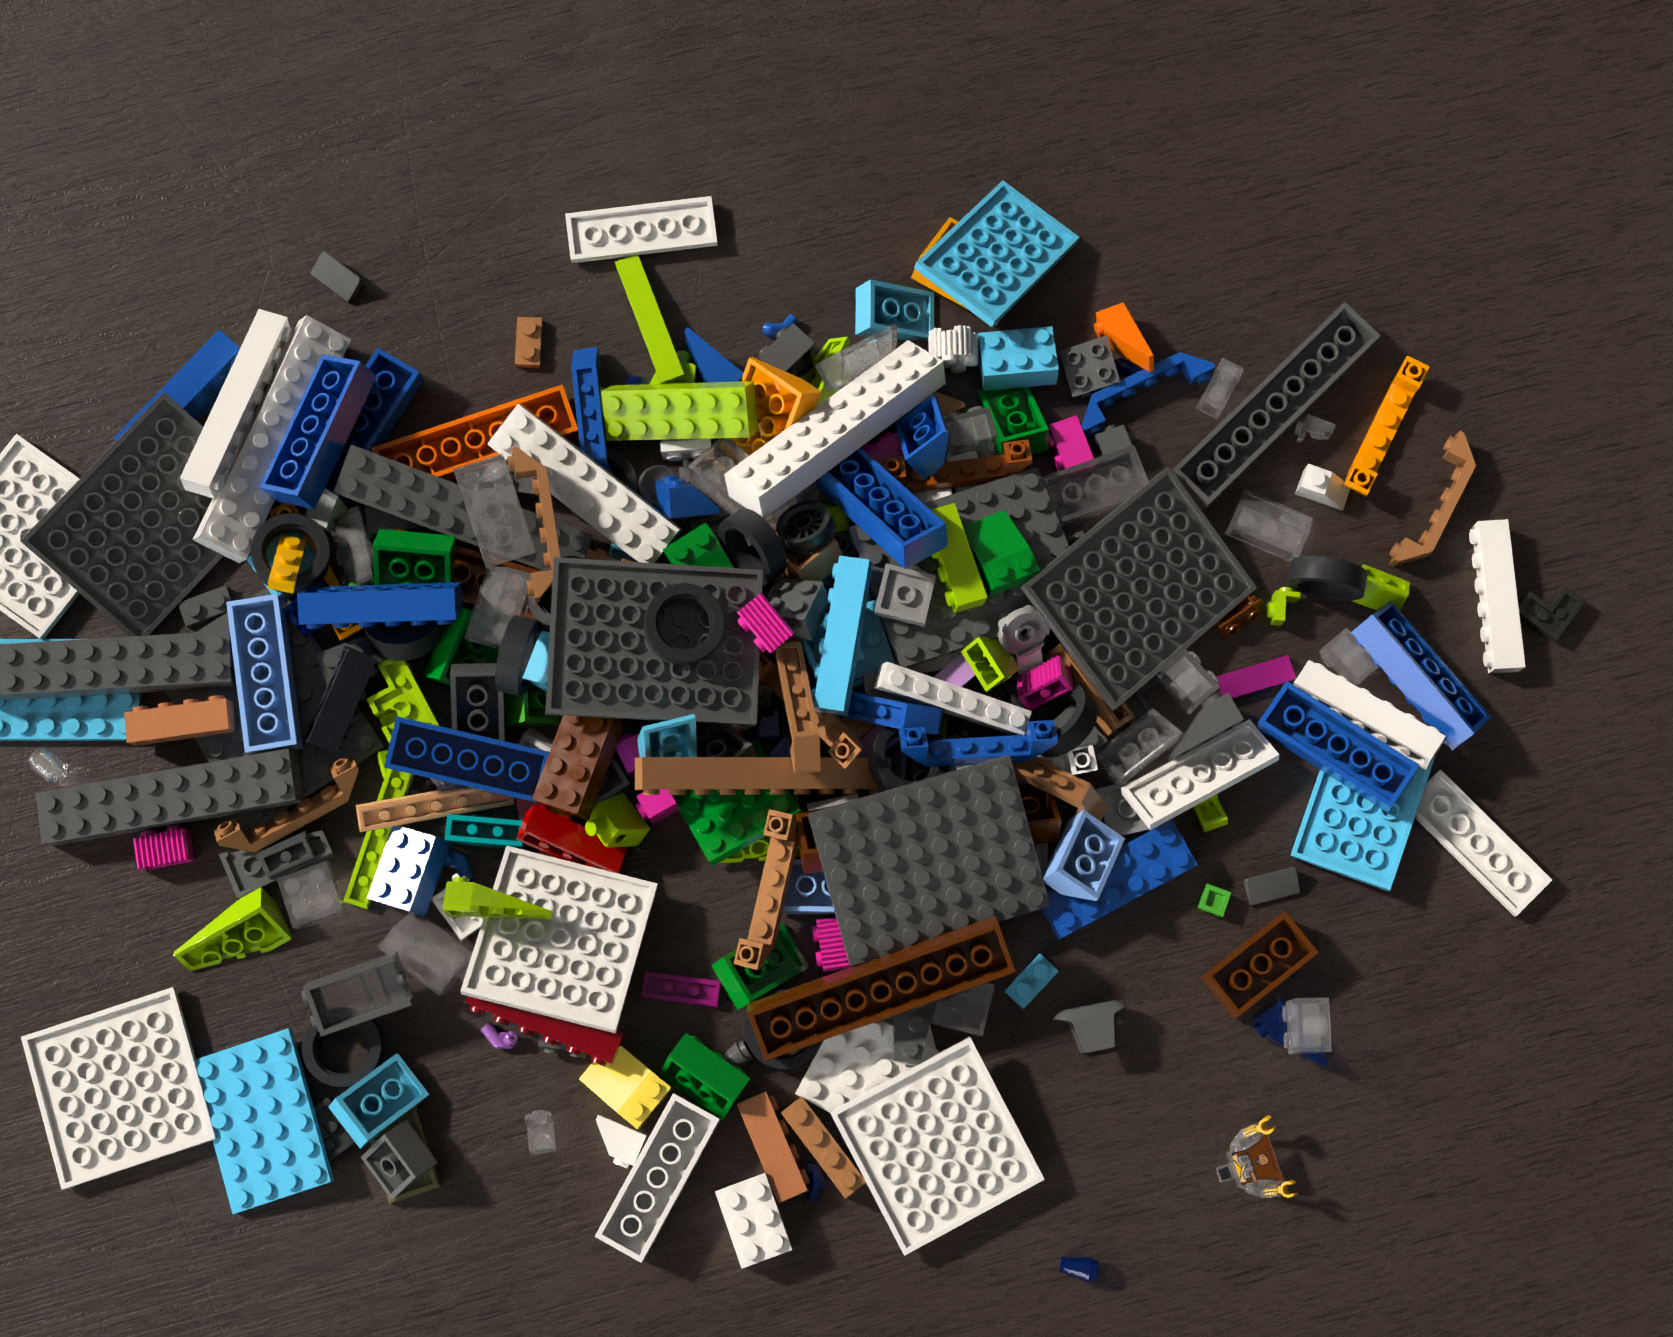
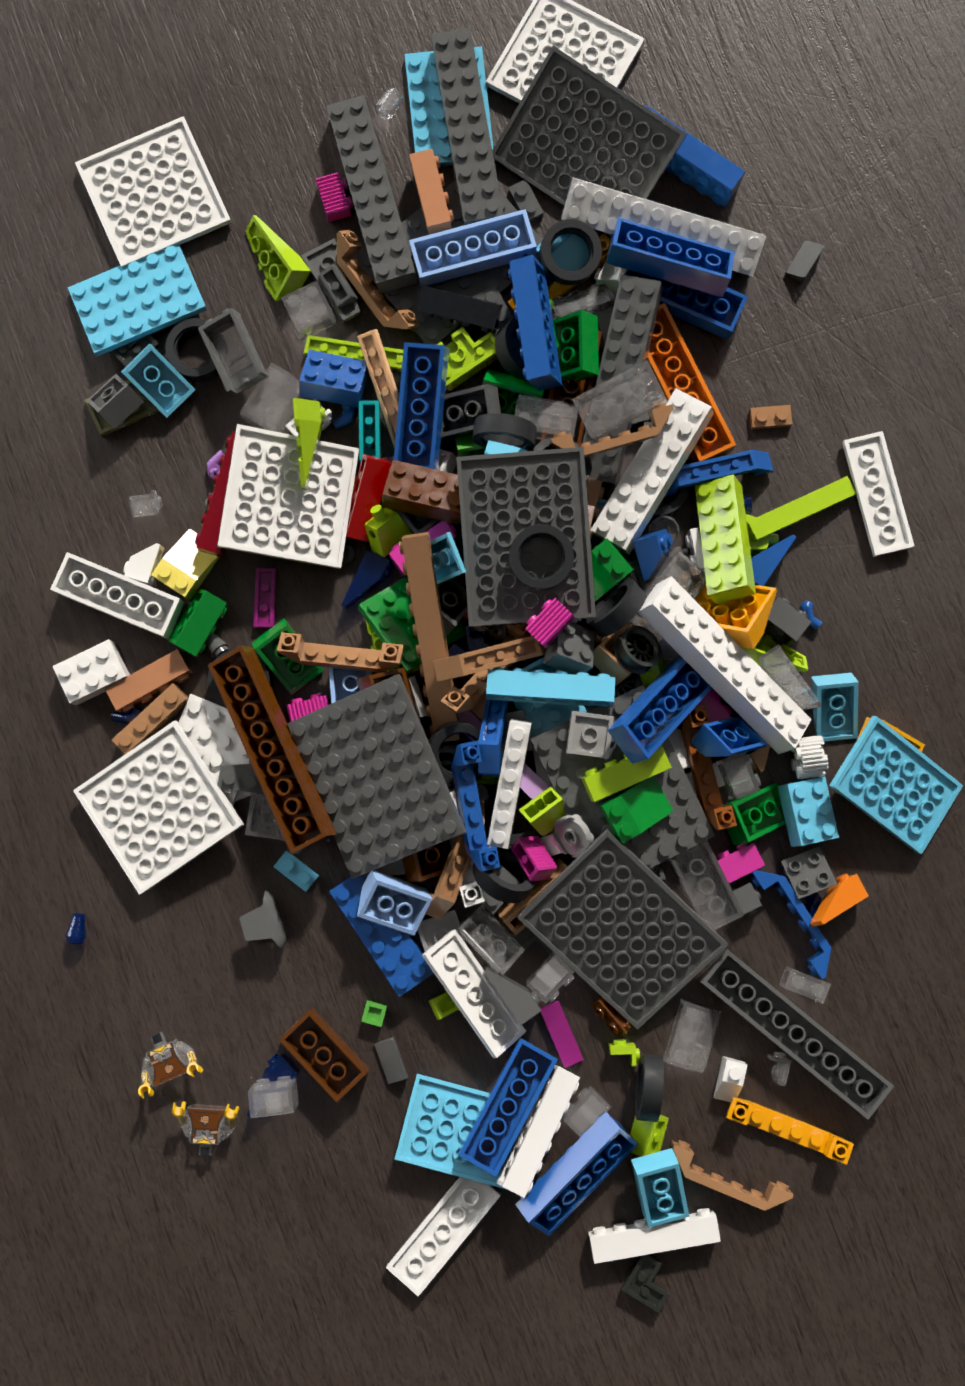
camera: 85 degrees right, 5 degrees up
(236, 404) = (686, 192): white brick -> none
(286, 564) = (559, 248): yellow plate -> none
(667, 851) = (368, 576): none -> clear blue slope
(1333, 1119) = (206, 1124): none -> torso
(1443, 580) = (660, 1188): none -> medium azure brick

